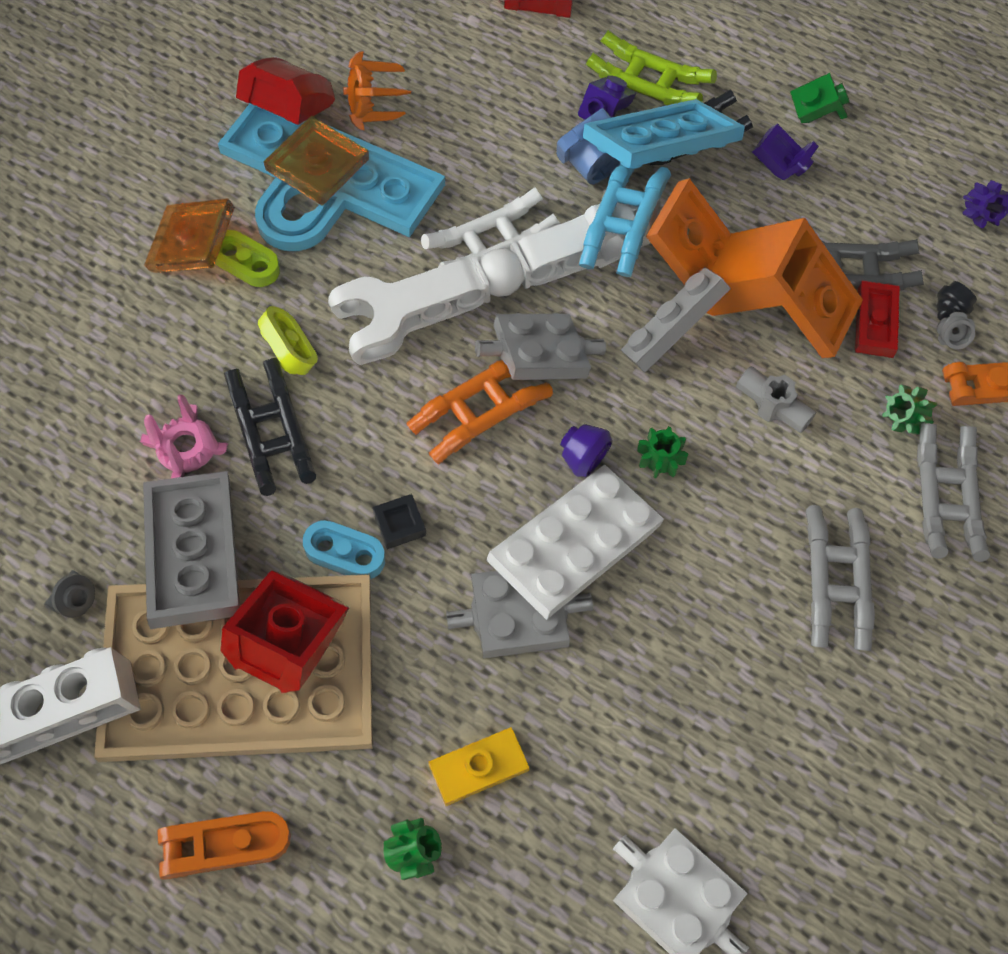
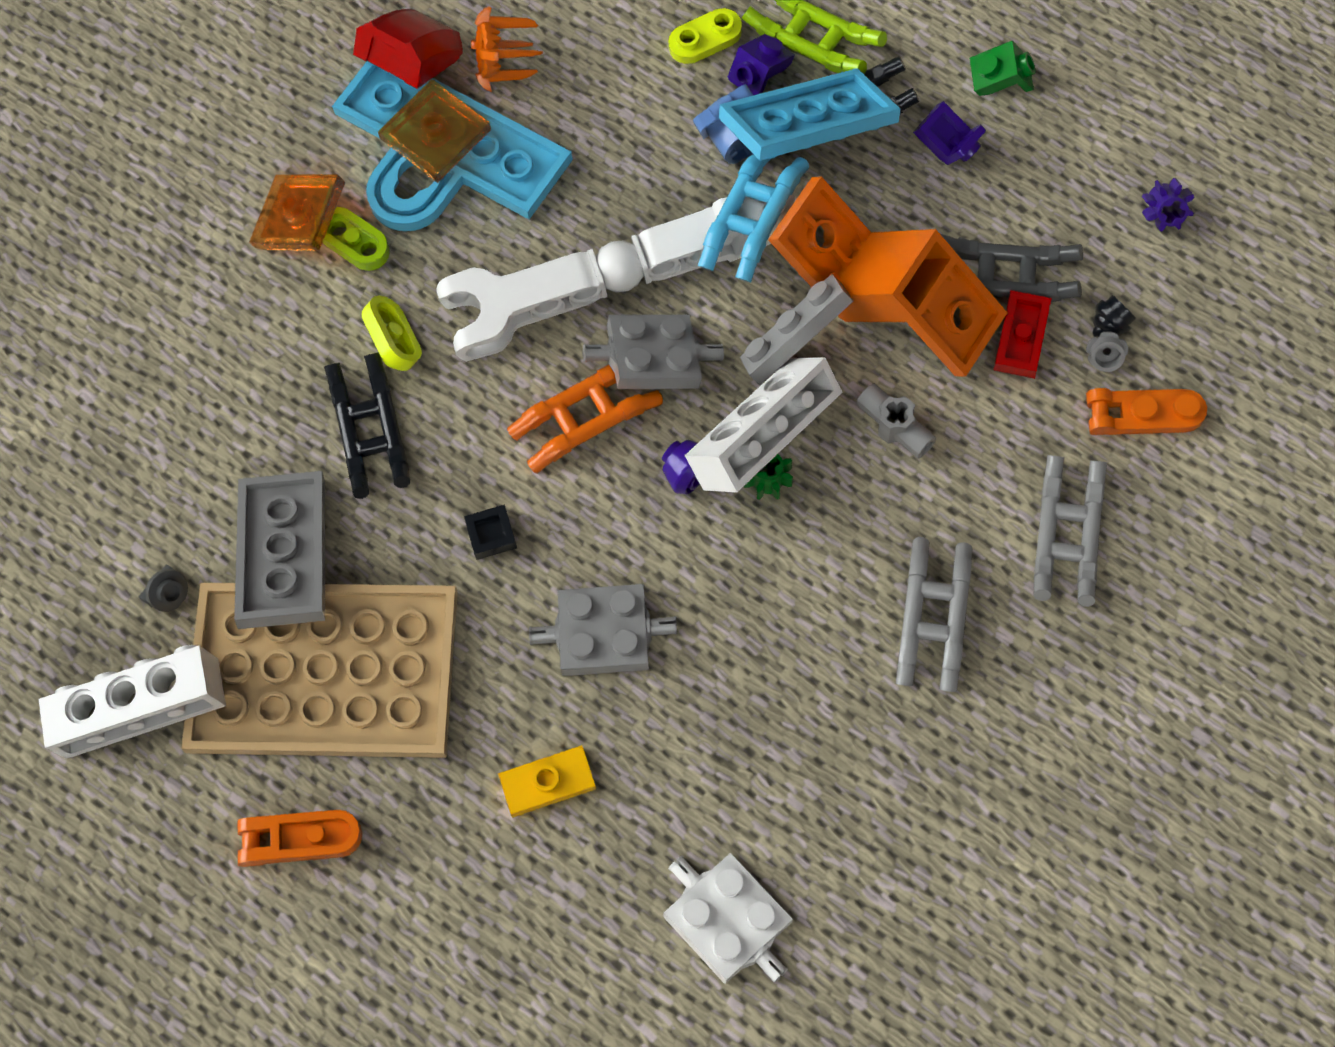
camera: 15 degrees right, 5 degrees up
(163, 440) = (285, 419): bright pink piece -> none
(282, 631) = (364, 637): red slope -> none
(346, 548) = (434, 559): medium azure plate -> none
(412, 848) = (474, 854): green gear -> none
(500, 218) = (624, 201): white piece -> none
(555, 80) = (706, 36): none -> neon yellow plate
(574, 541) = (665, 562): white plate -> none
(657, 406) = (763, 424): none -> white brick
(909, 409) = (1037, 438): green gear -> none

